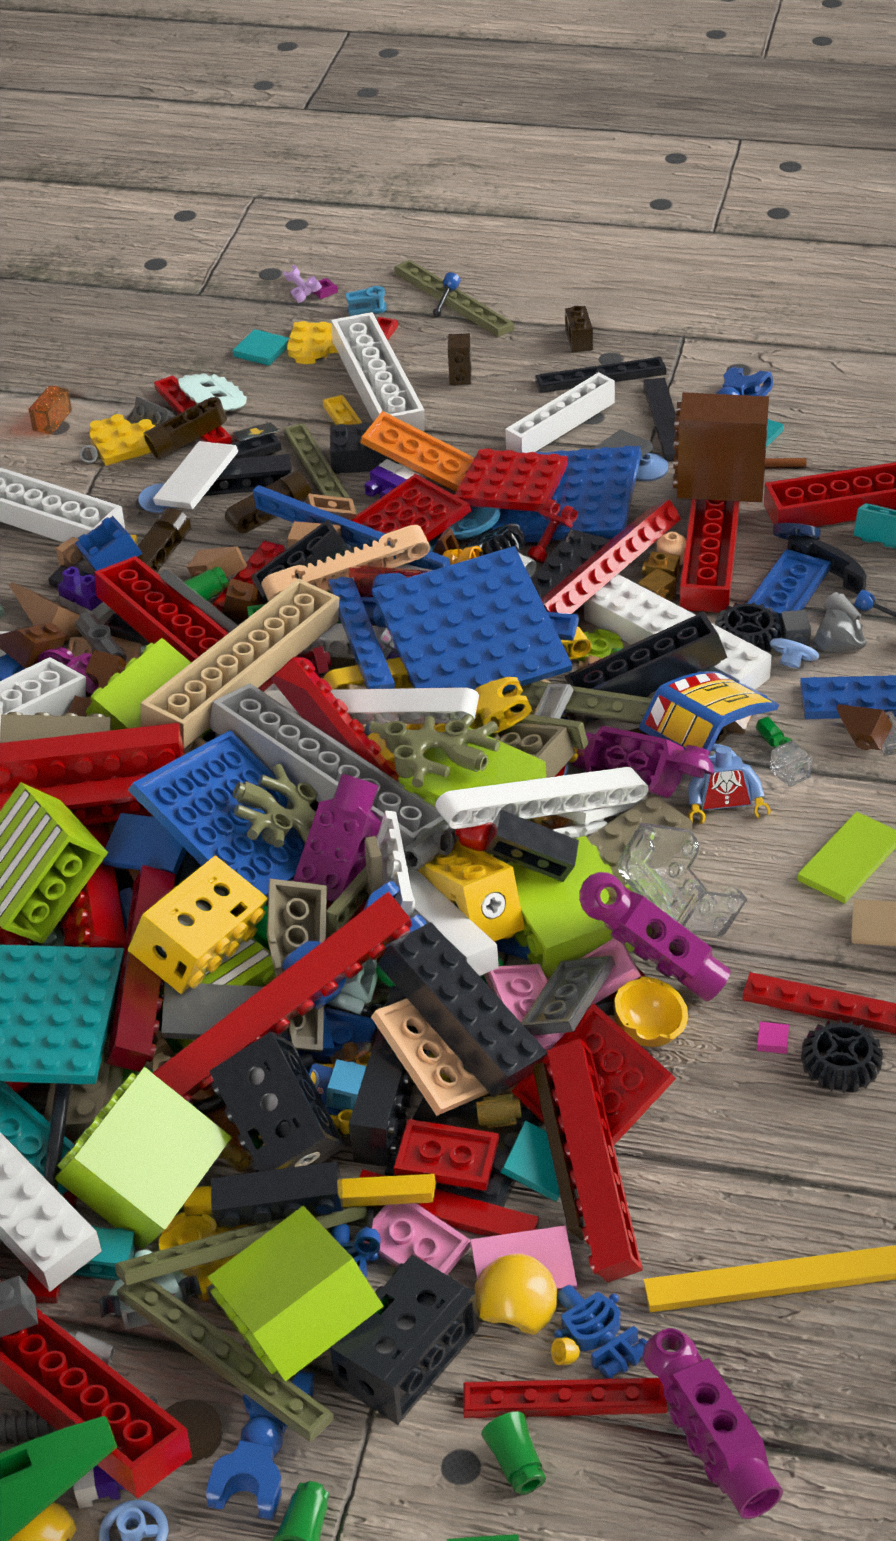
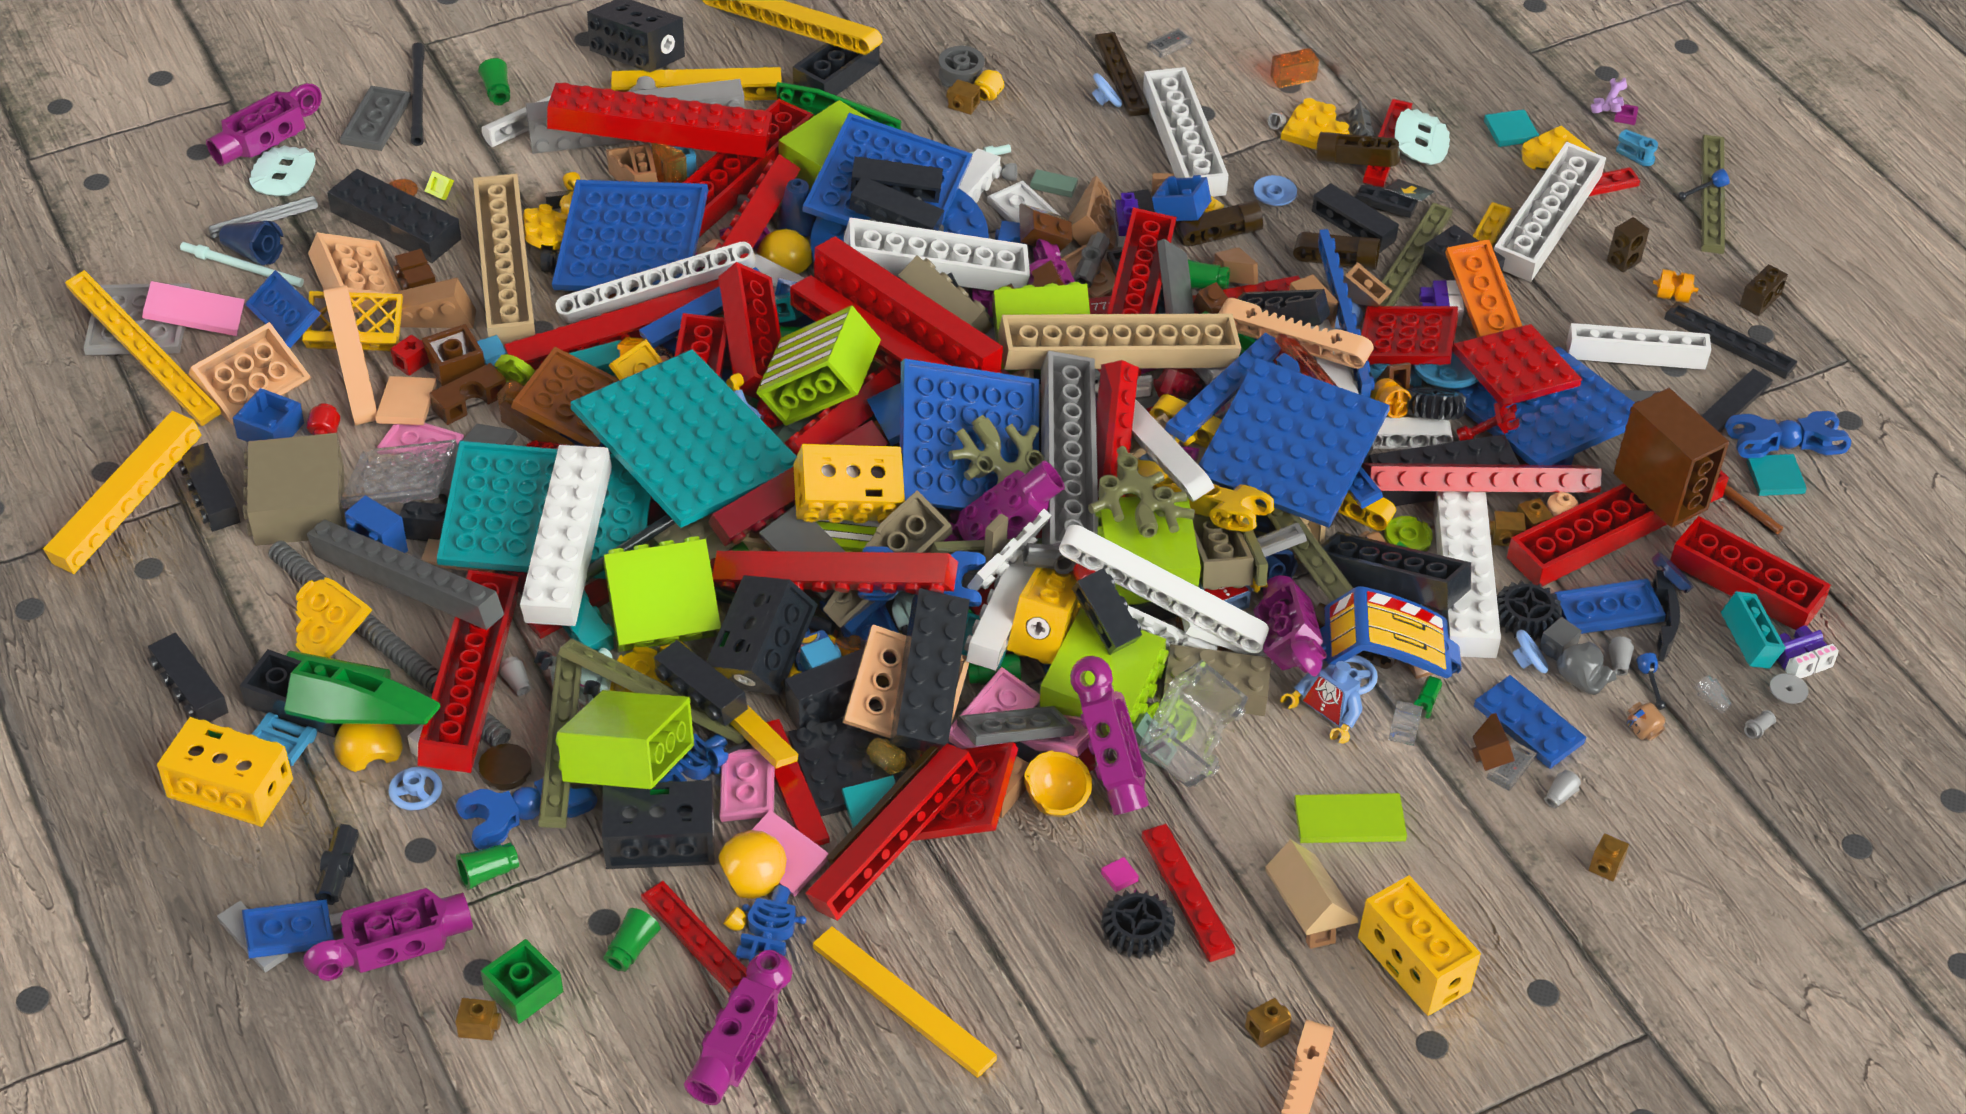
camera: 45 degrees right, 5 degrees up
(195, 475) = (1311, 190): white tile -> none
(450, 1152) = (825, 752): red plate -> none
(523, 364) = (1675, 286): none -> light orange wheel

